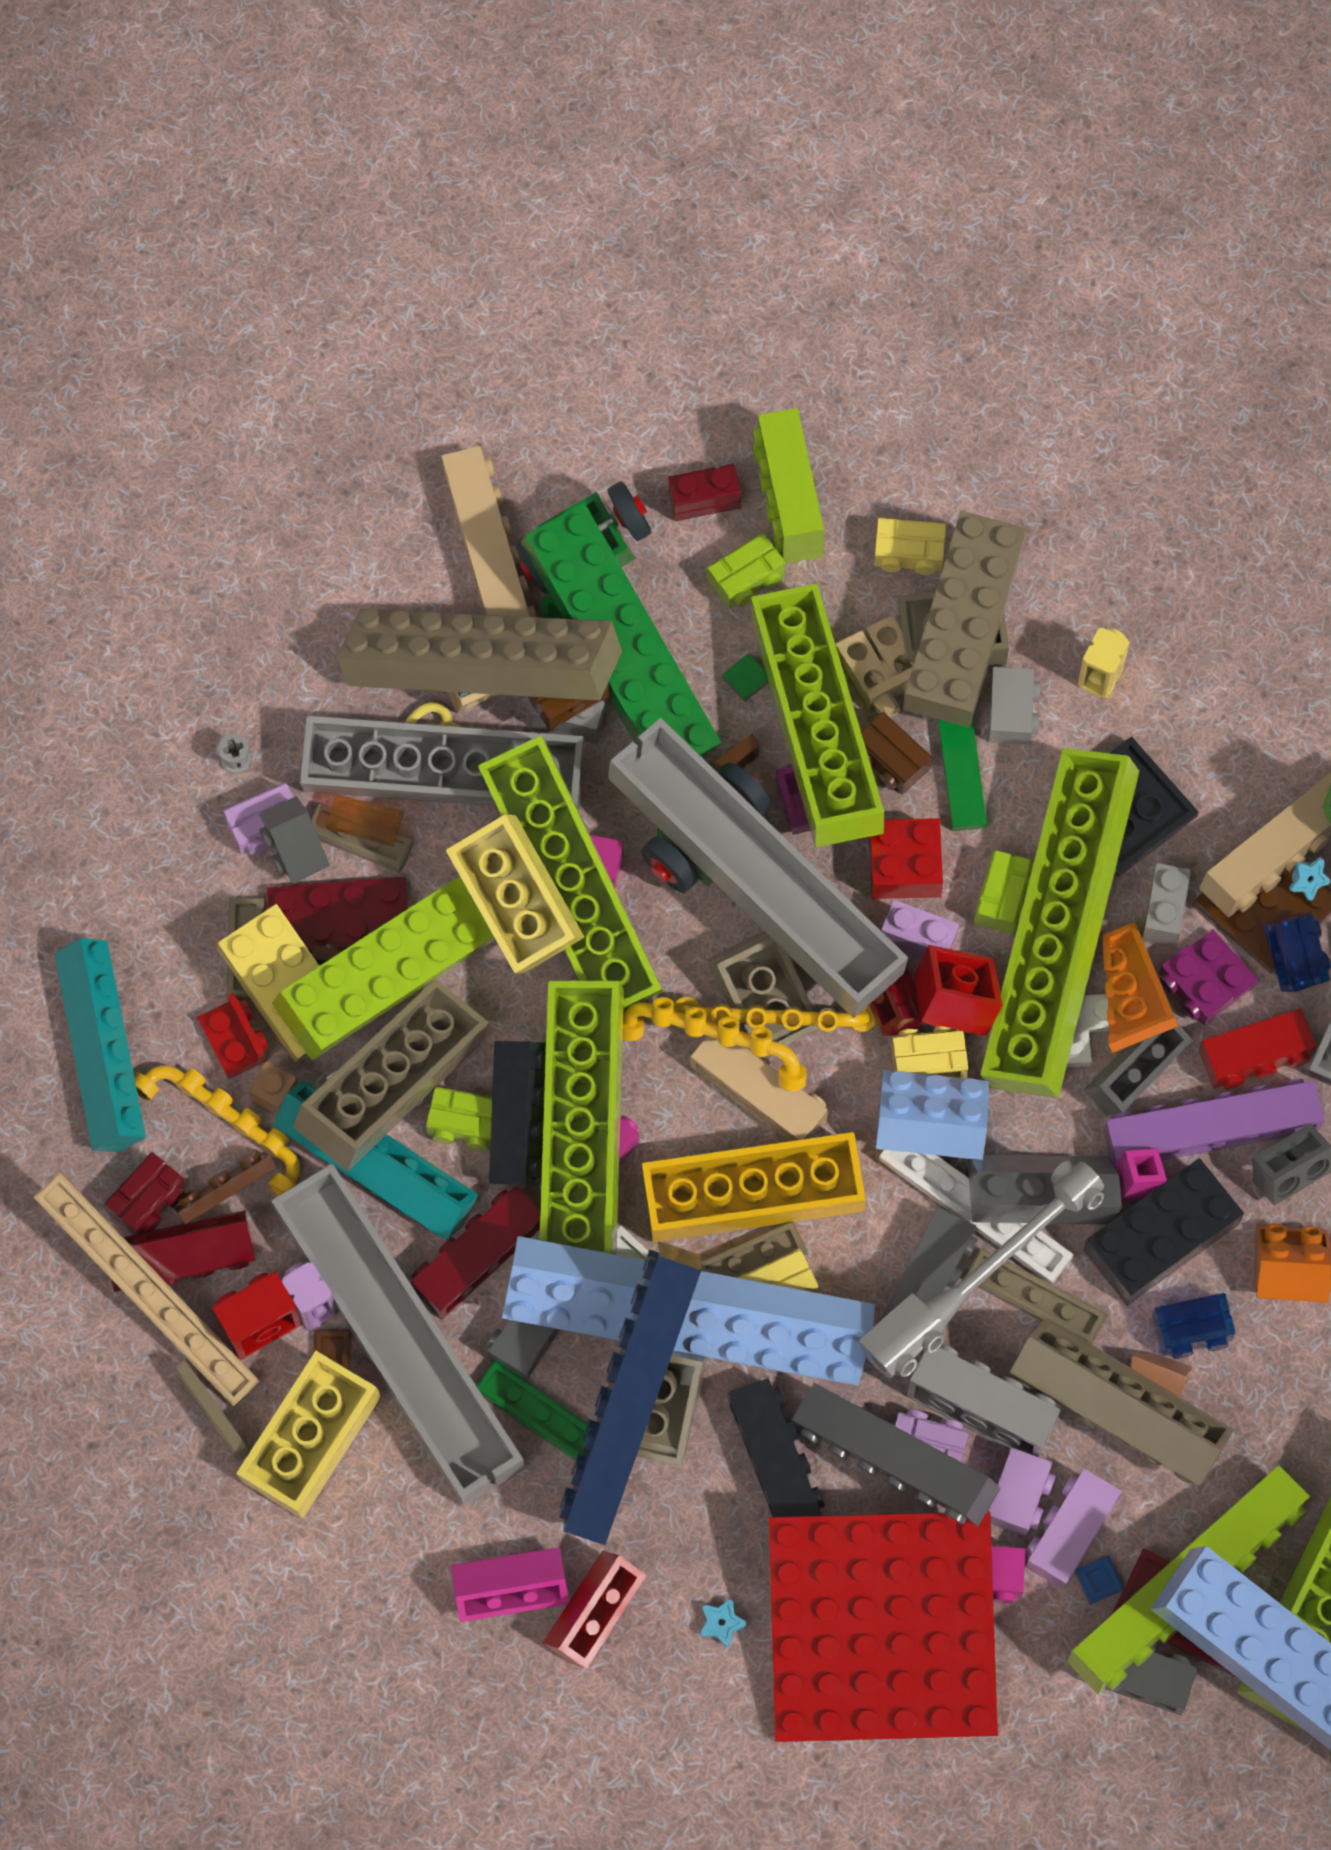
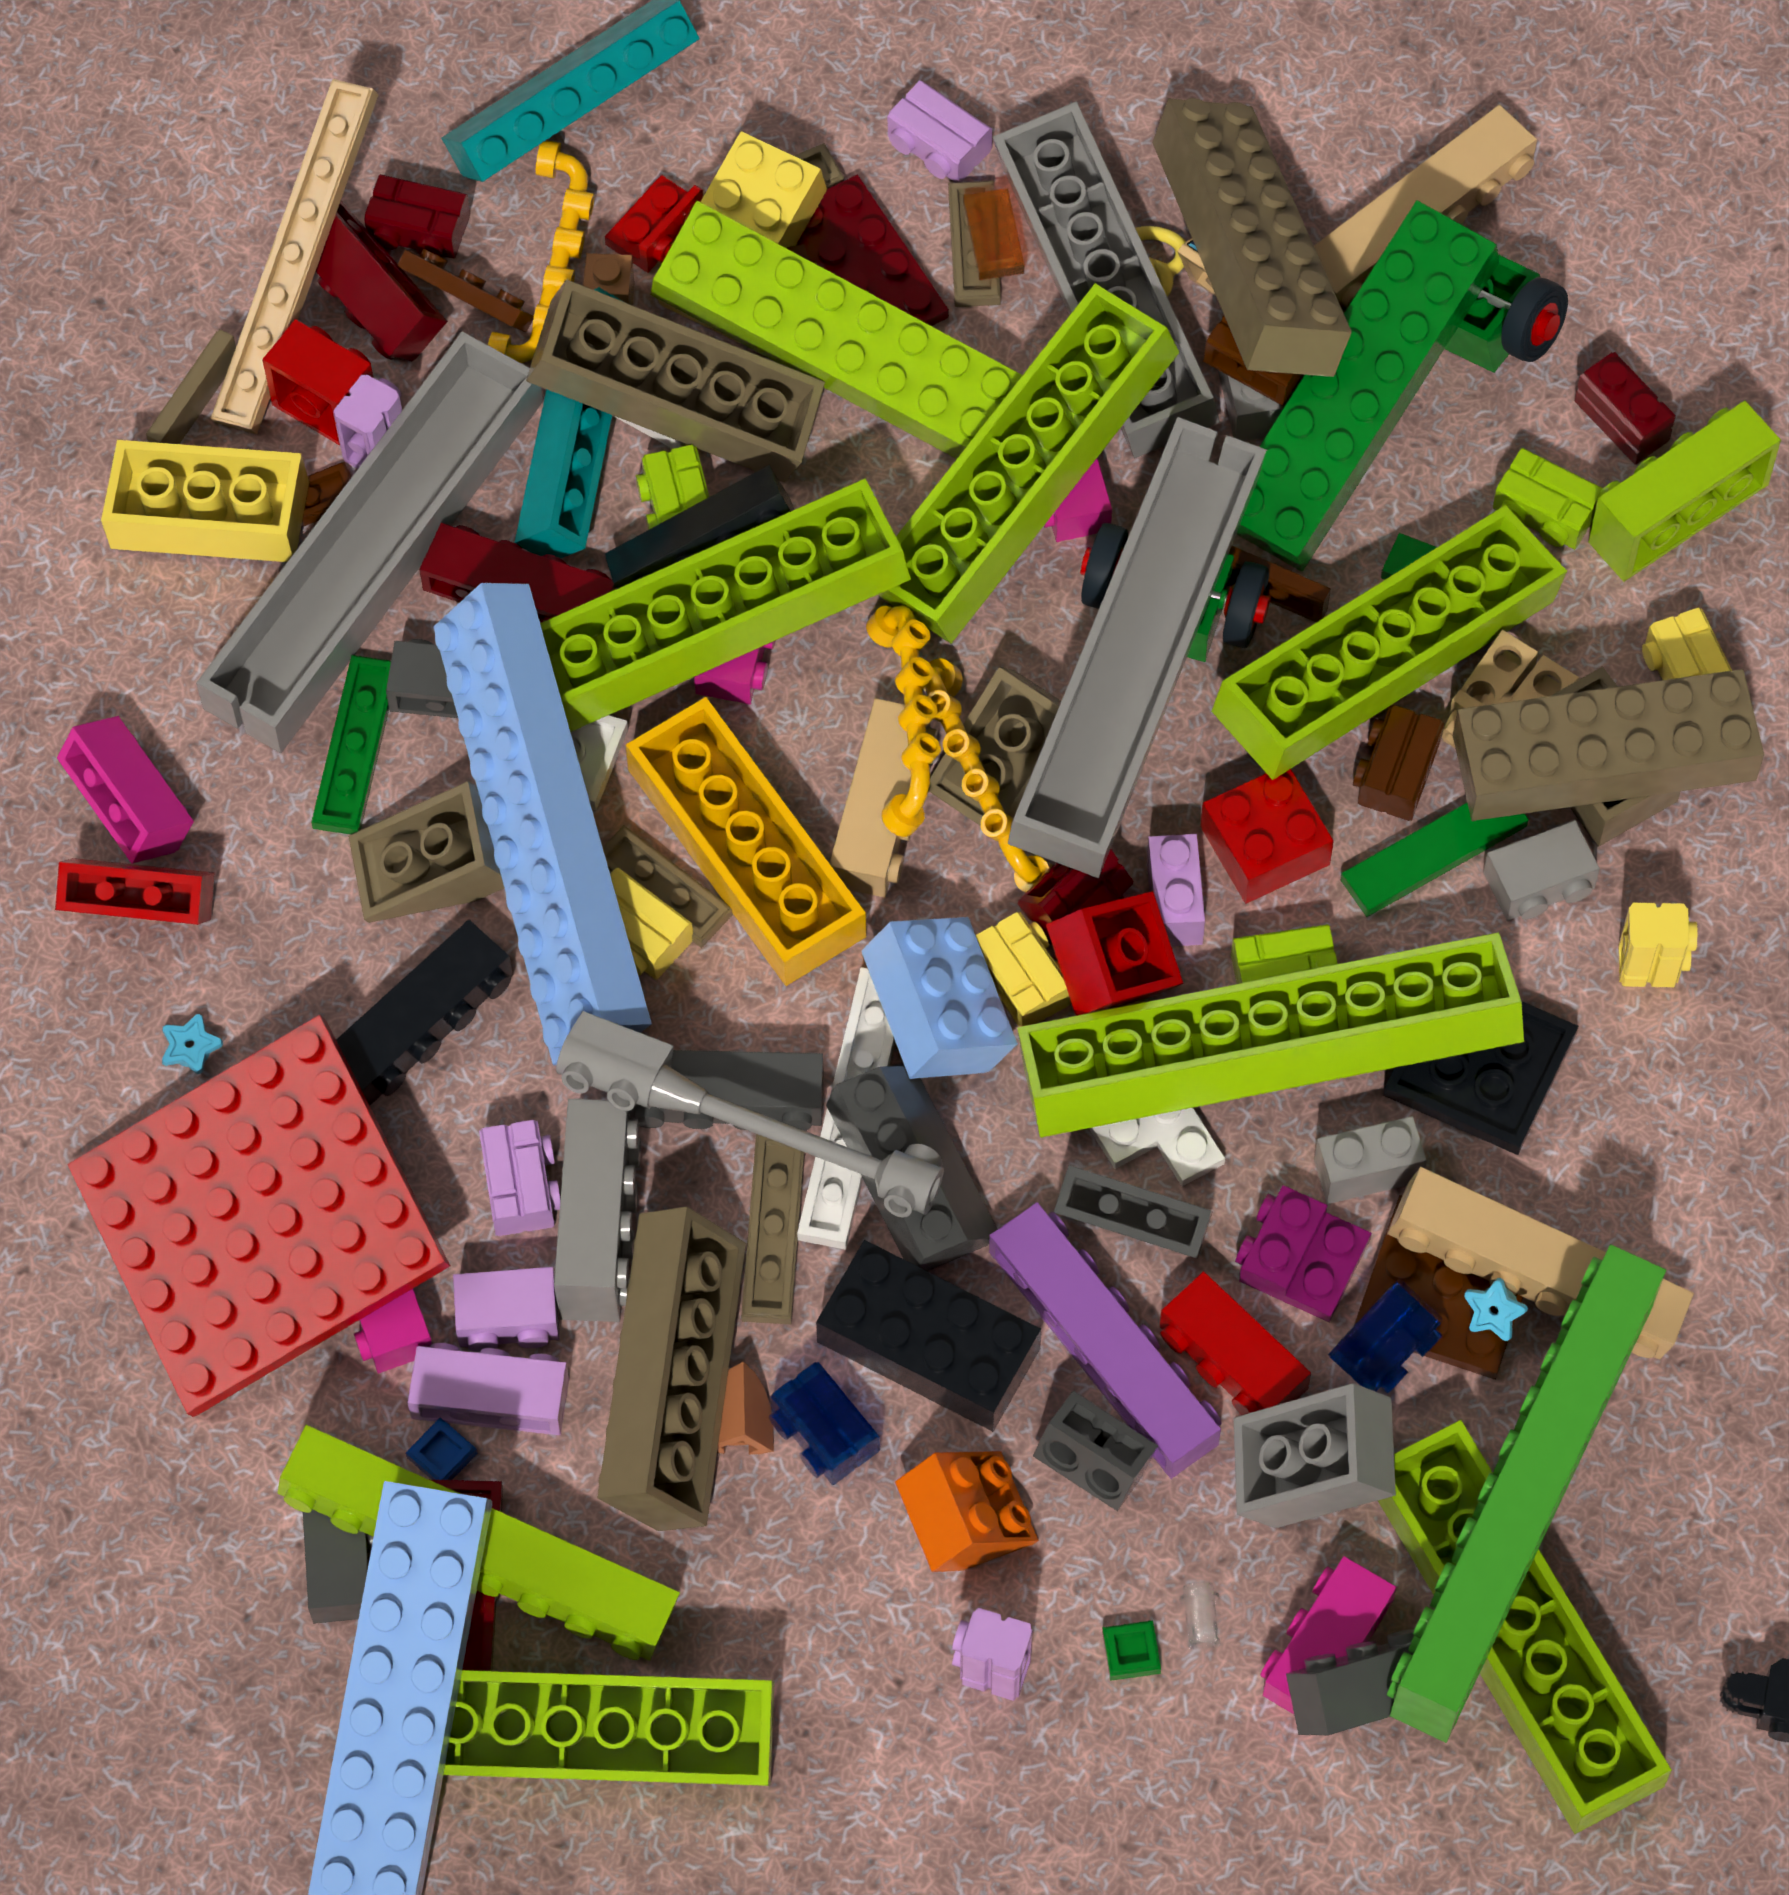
camera: 65 degrees right, 5 degrees down
(241, 746) = (1003, 67): light grey bush -> none
(293, 839) = (921, 165): dark grey brick -> none
(515, 893) = (956, 395): light yellow brick -> none
(632, 1391) = (394, 784): dark blue brick -> none
(895, 1454) = (468, 1129): dark grey brick -> none
(1133, 990) = (1224, 1160): orange wing -> none
(1139, 1173) = (987, 1269): dark pink brick -> none

